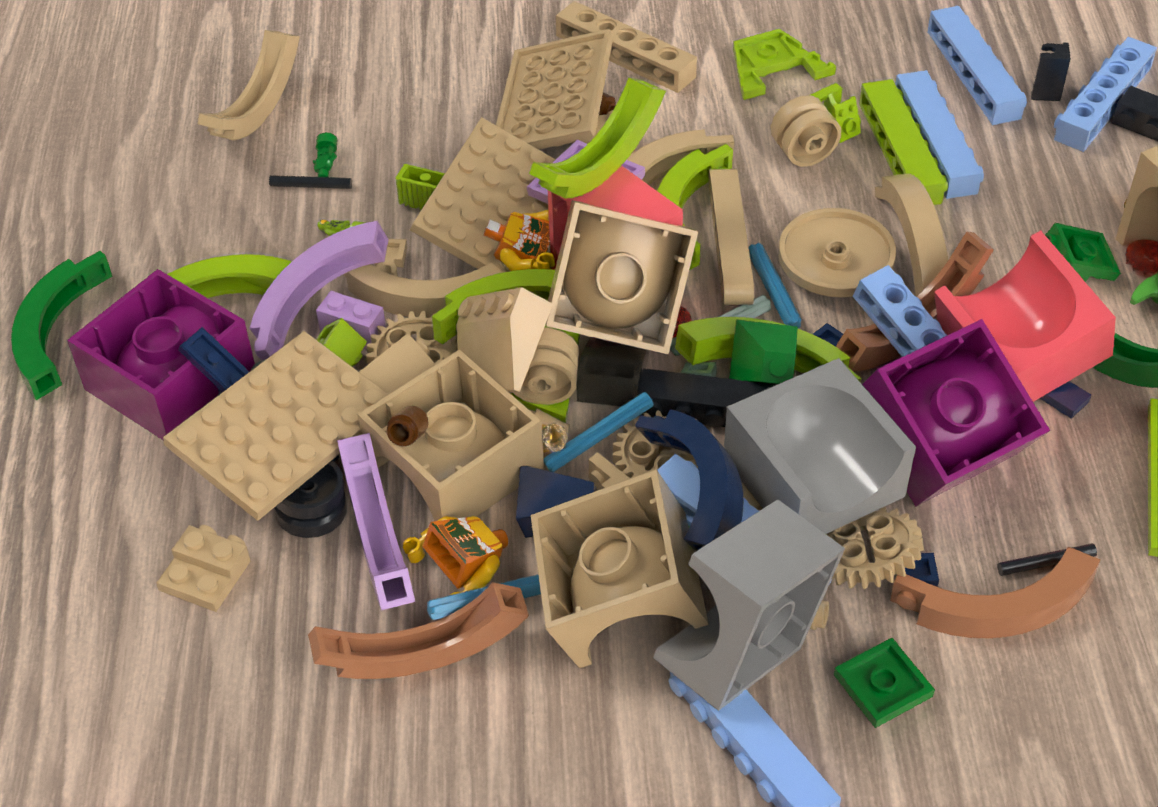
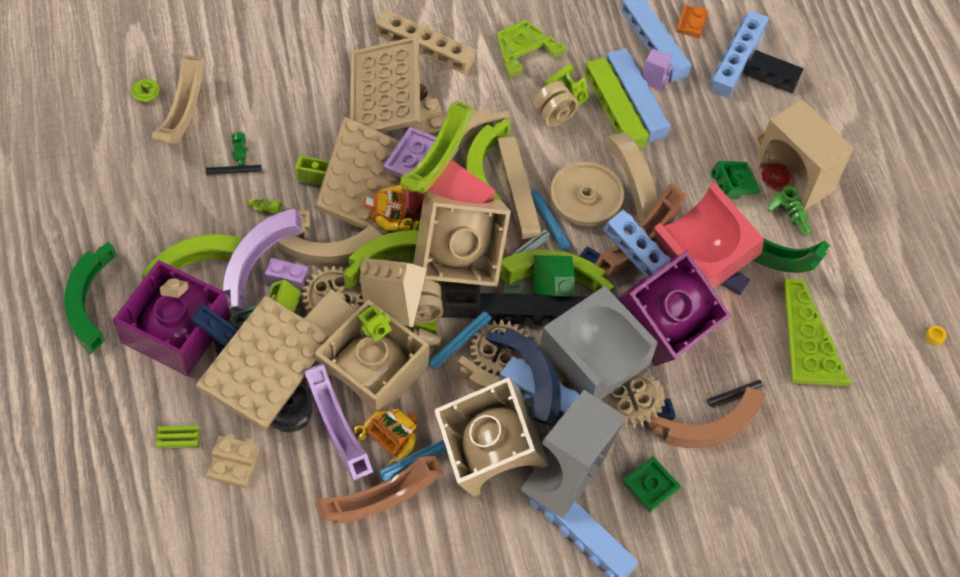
camera: 15 degrees left, 10 degrees up
(132, 520) = (182, 432): none -> lime tile
(170, 308) = (174, 288): none -> tan plate
(219, 72) = (148, 85): none -> lime gear
(407, 426) = (348, 359): reddish brown brick -> none
(460, 380) = (374, 323): none -> lime brick
(544, 490) = (440, 390): dark blue slope -> none
(557, 440) = (435, 348): clear yellow bush -> none
(971, 98) = (656, 69): none -> lavender brick
(1030, 45) = (692, 21): none -> orange plate
(1051, 72) = (705, 43): black hinge -> none

